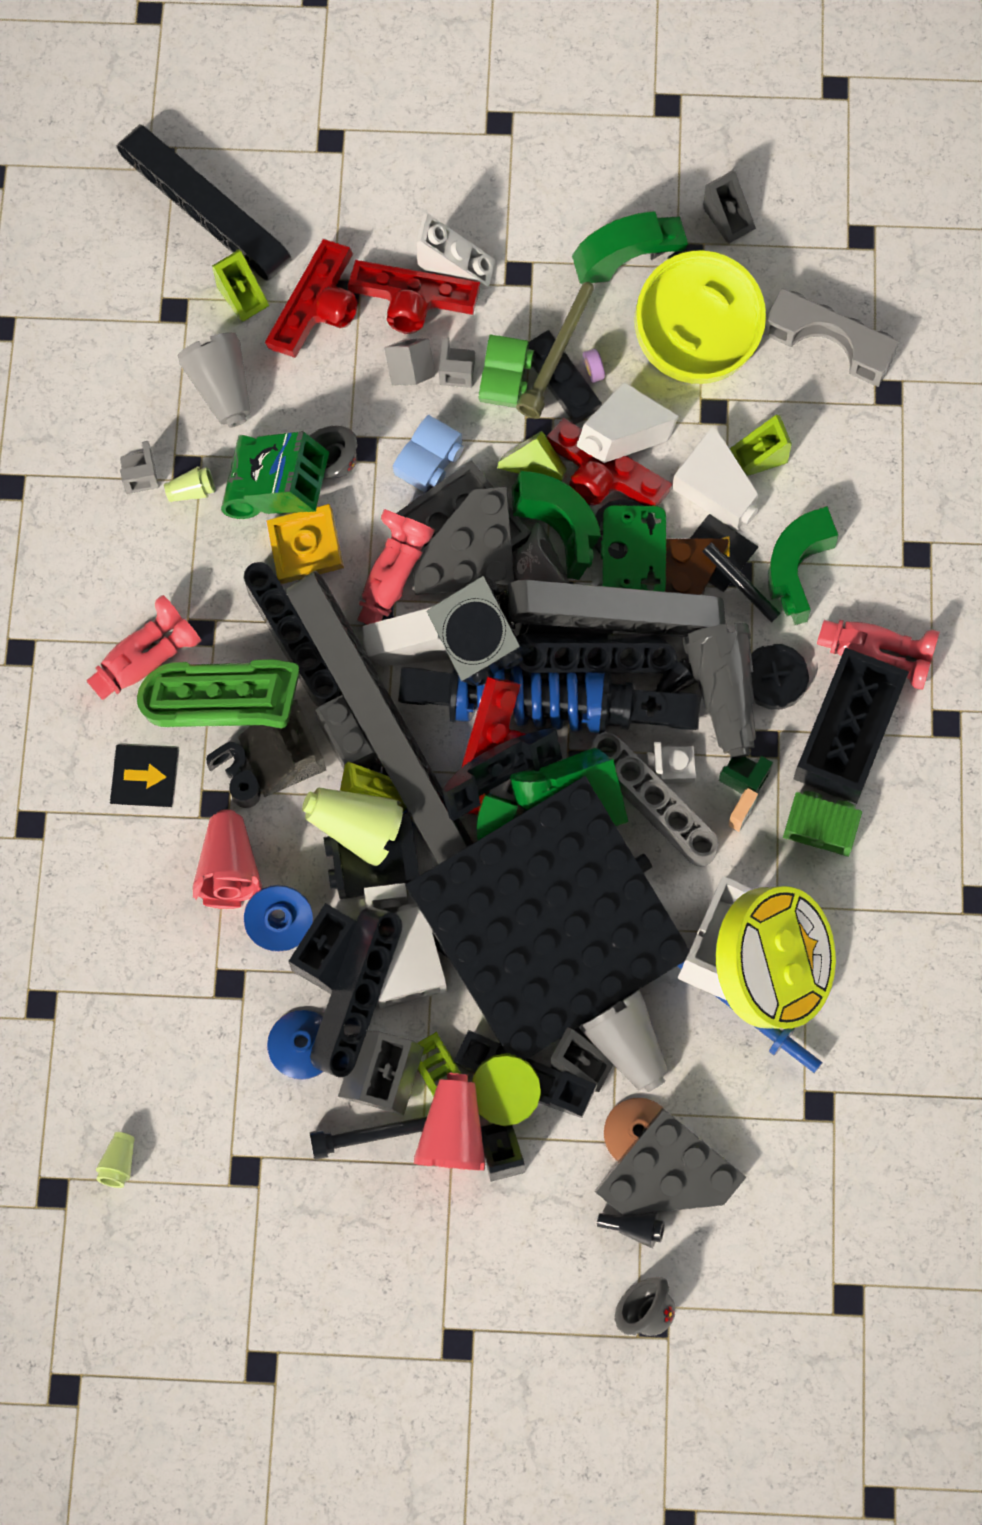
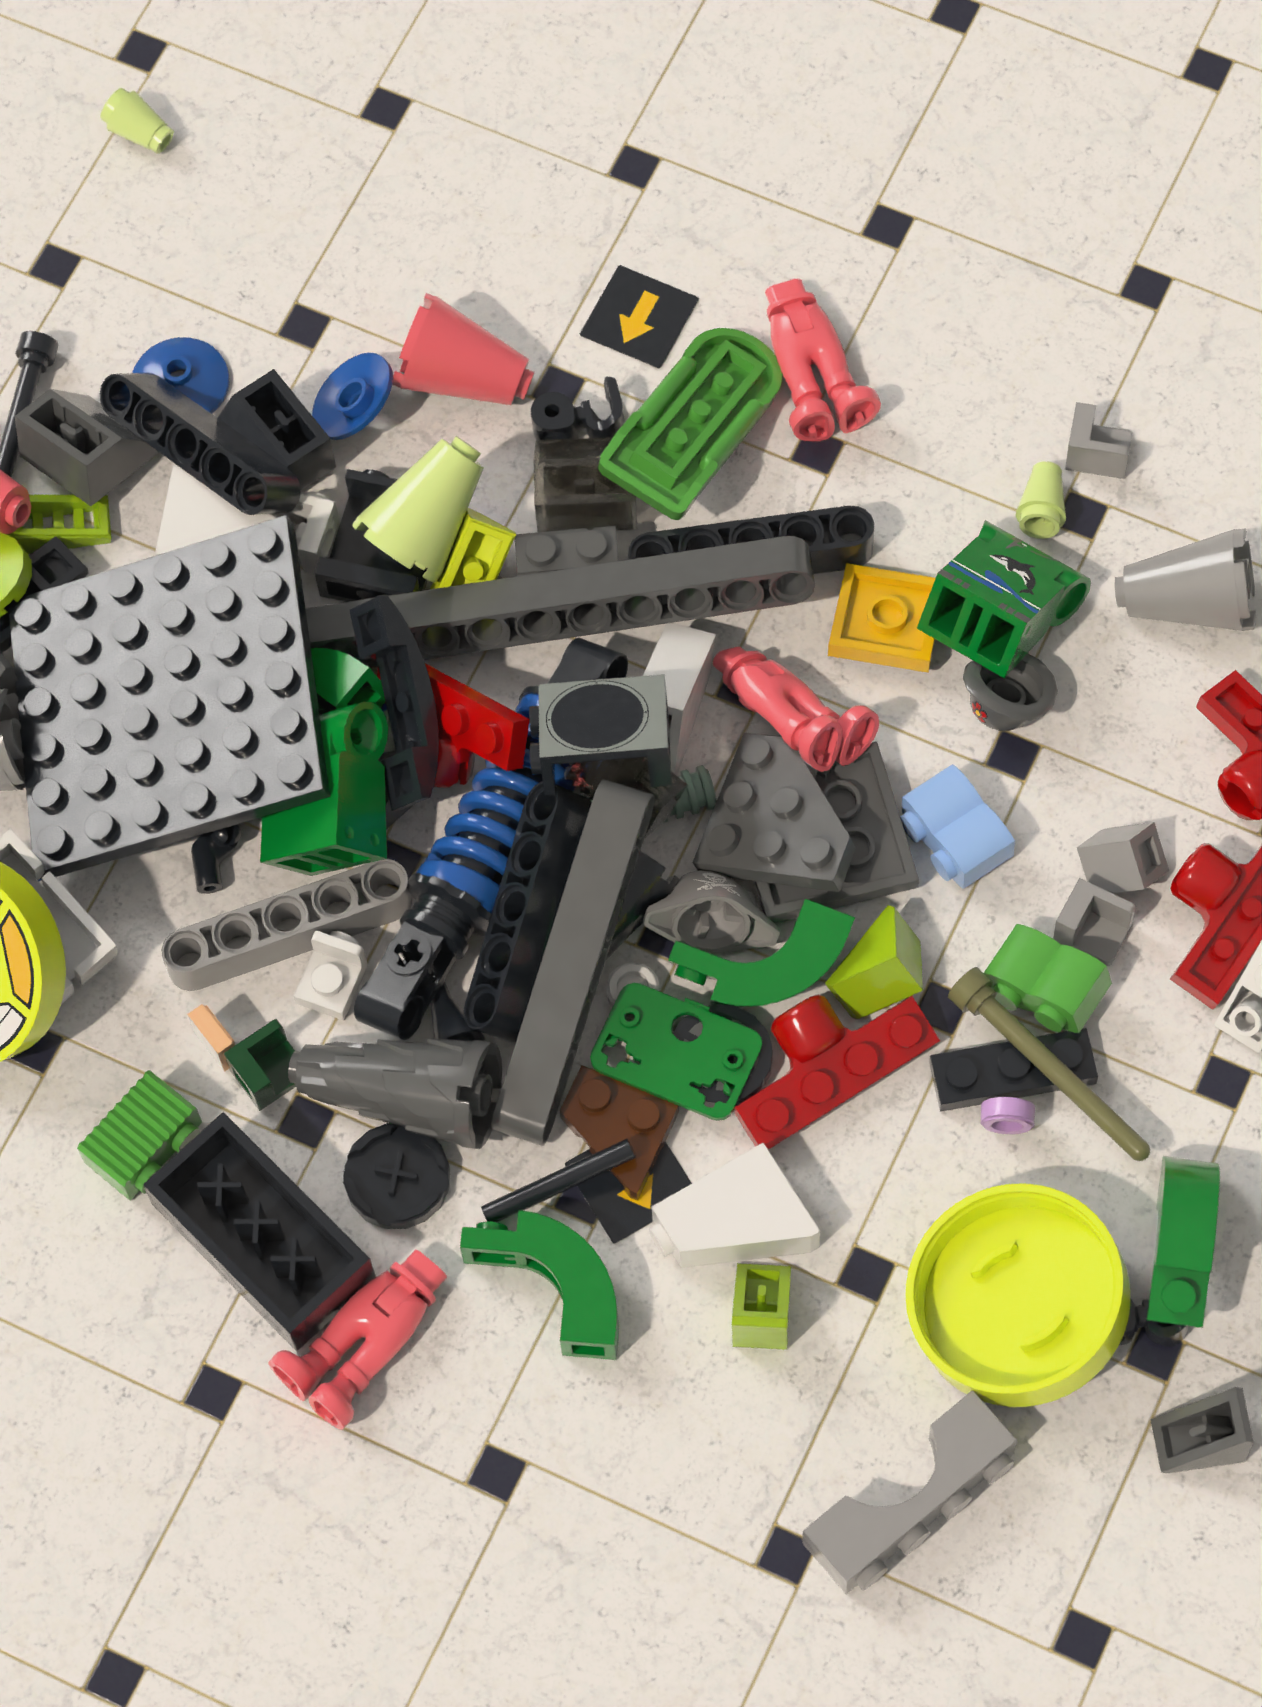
camera: 115 degrees right, 5 degrees down
(626, 425) = (878, 1107): white slope -> none

